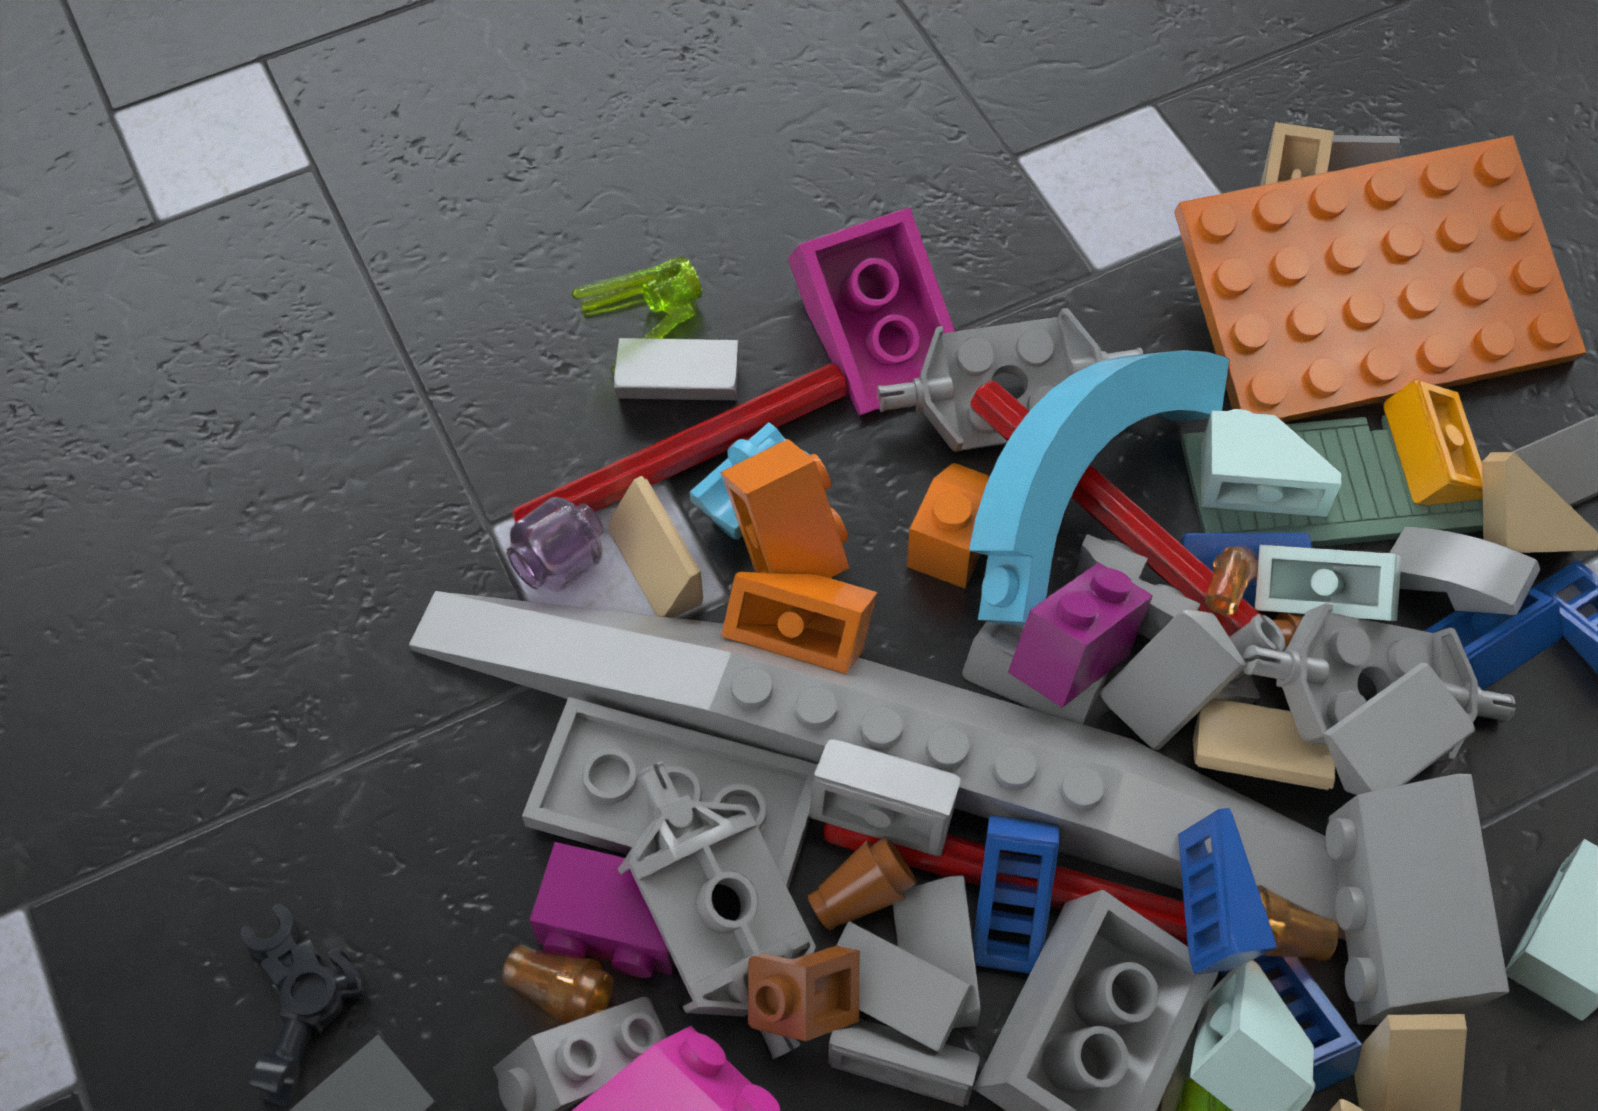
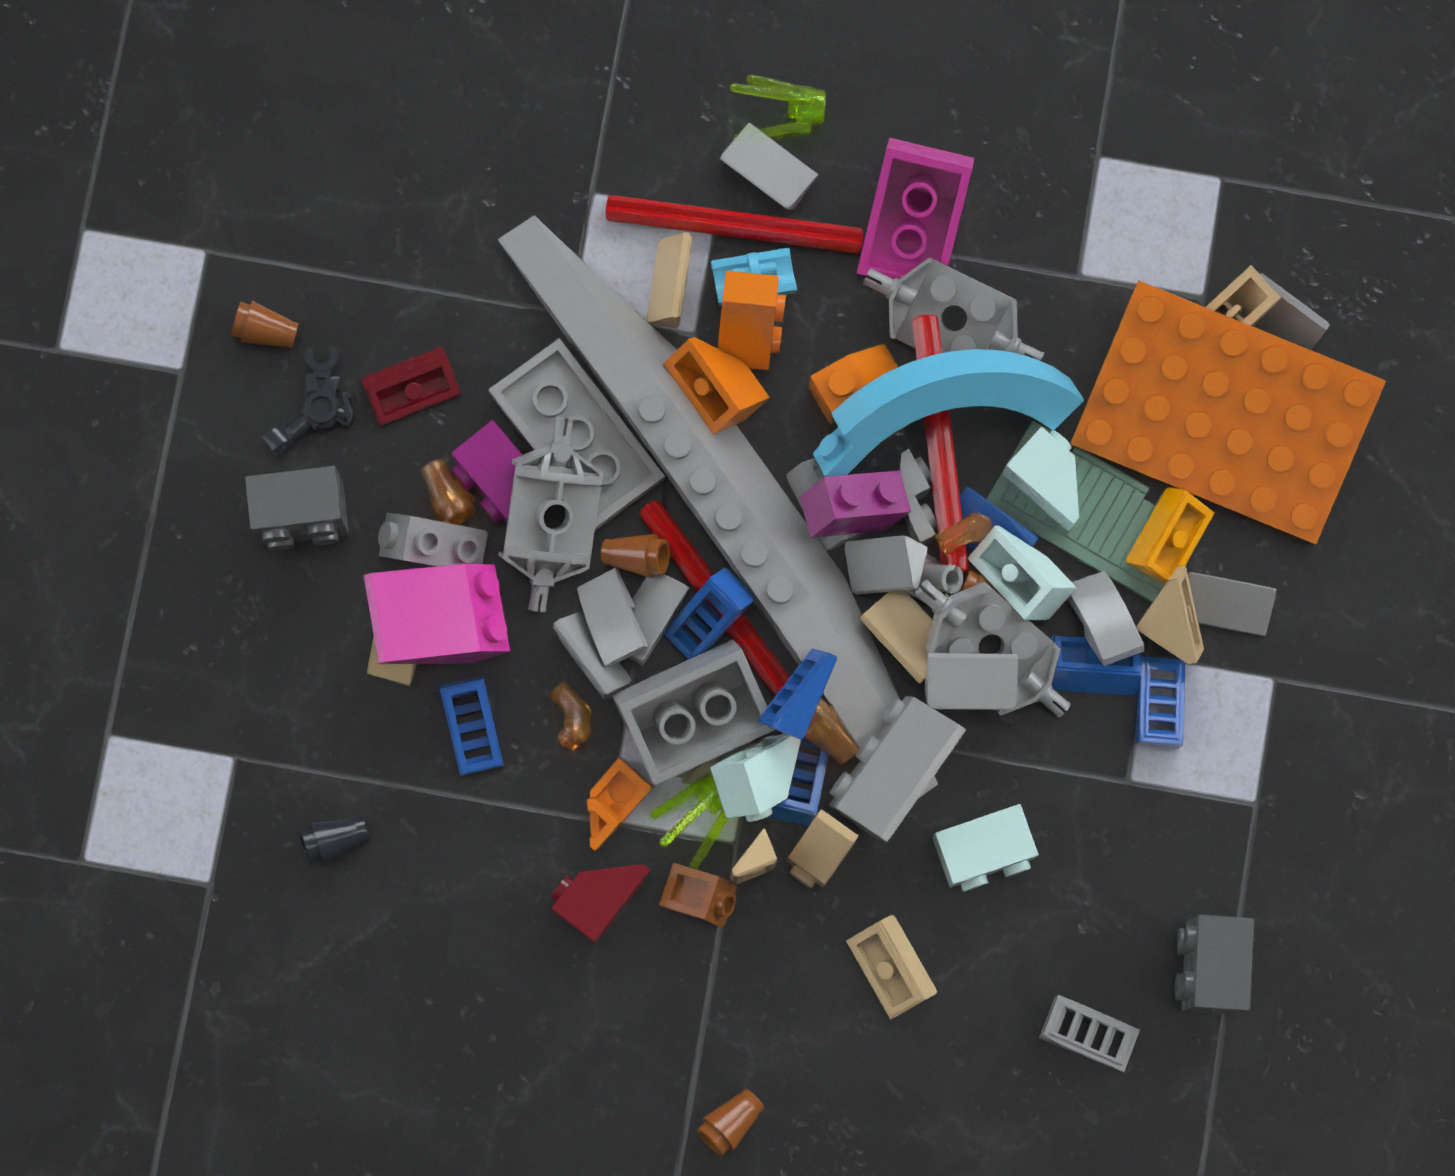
camera: 30 degrees right, 20 degrees up
(159, 943) = (263, 326): none -> dark orange cone
(415, 887) = (411, 386): none -> dark red slope
(555, 544) = (616, 238): clear purple head -> none
(804, 994) = (560, 592): dark orange bracket -> none
(884, 796) = (678, 517): light grey slope -> none

